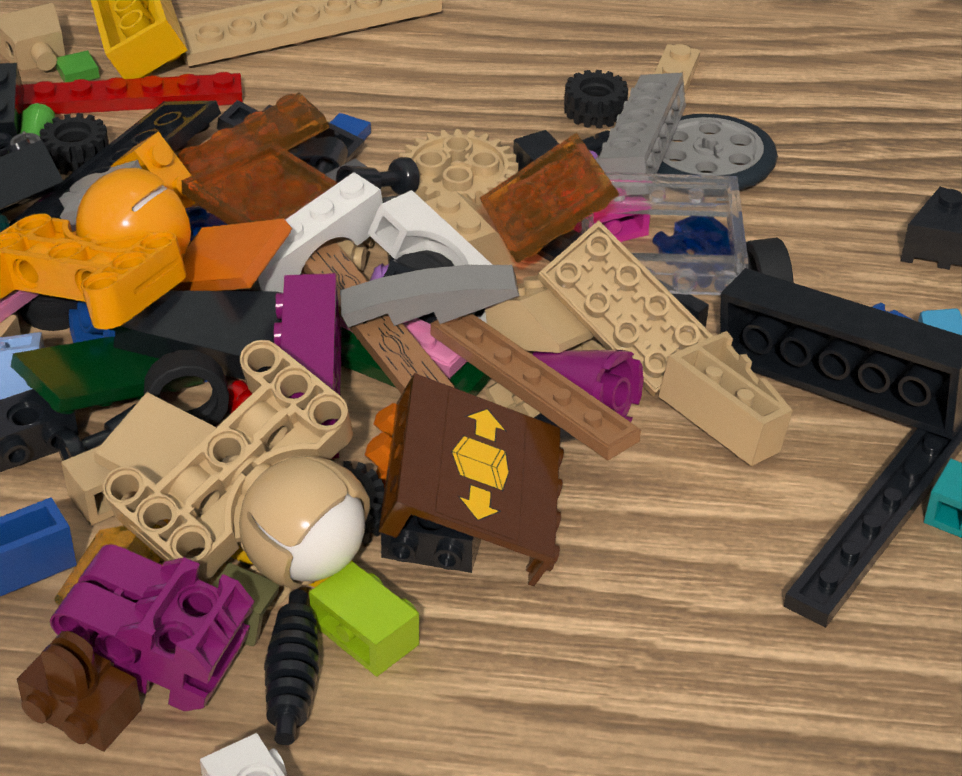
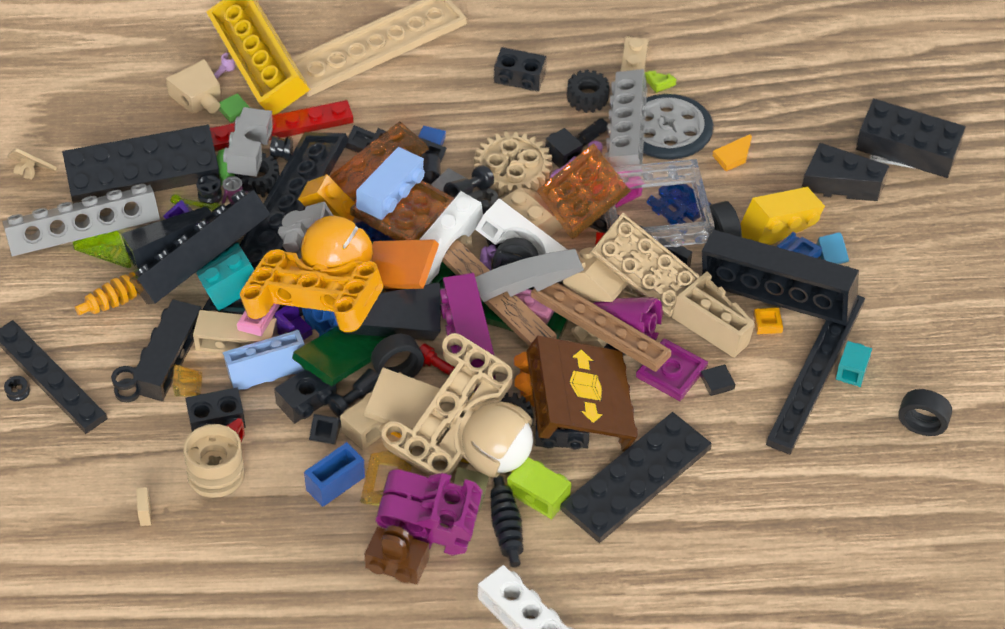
camera: 10 degrees left, 10 degrees up
(37, 482) = (325, 429): none -> black slope
(44, 317) = (289, 320): none -> dark purple panel
(58, 100) = (244, 149): none -> light grey arch
(87, 22) = (226, 65): none -> lavender hand
(121, 115) = (281, 147): none -> black wheel
(248, 153) = (390, 183): none -> light blue brick
(502, 63) = (520, 69): none -> black brick
(539, 628) = (635, 477): none -> black plate
(644, 475) = (676, 374): none -> magenta tile
(707, 102) = (660, 81): none -> lime tile
(717, 496) = (717, 380): none -> black tile
(802, 196) = (733, 154): none -> light orange tile
(819, 421) = (768, 320): none -> light orange tile
(868, 270) = (779, 214): none -> yellow wedge

